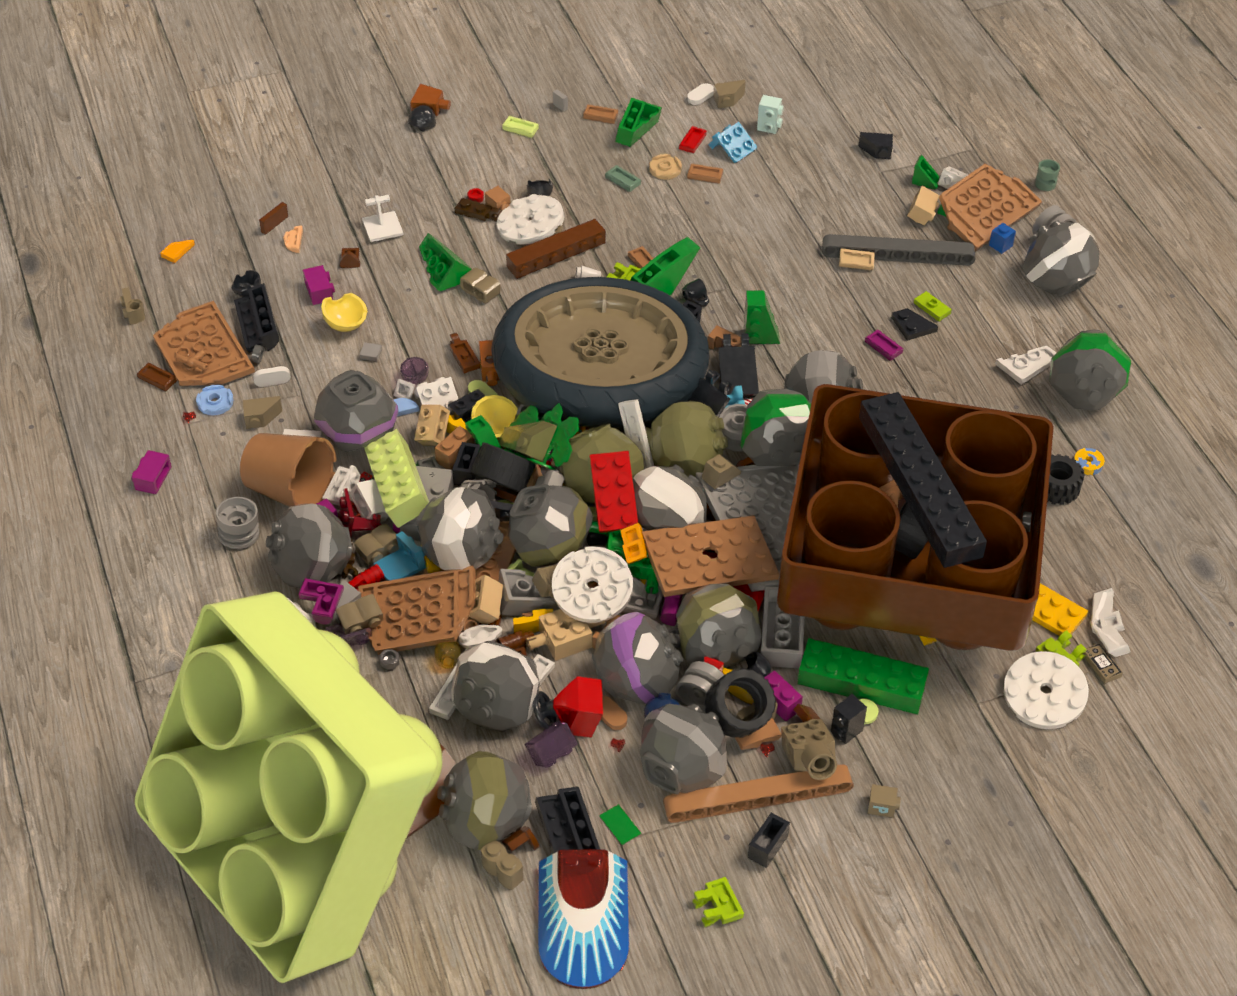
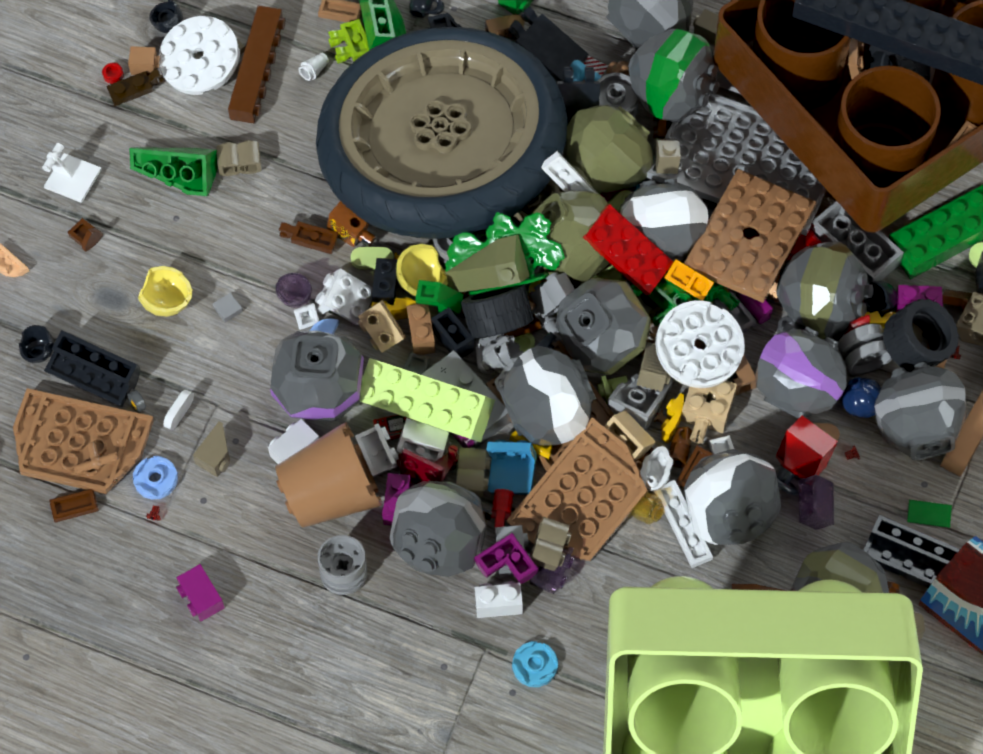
camera: 45 degrees left, 15 degrees up
(318, 284) = (97, 286): magenta piece -> none
(389, 659) = (607, 556): flat silver tile -> none

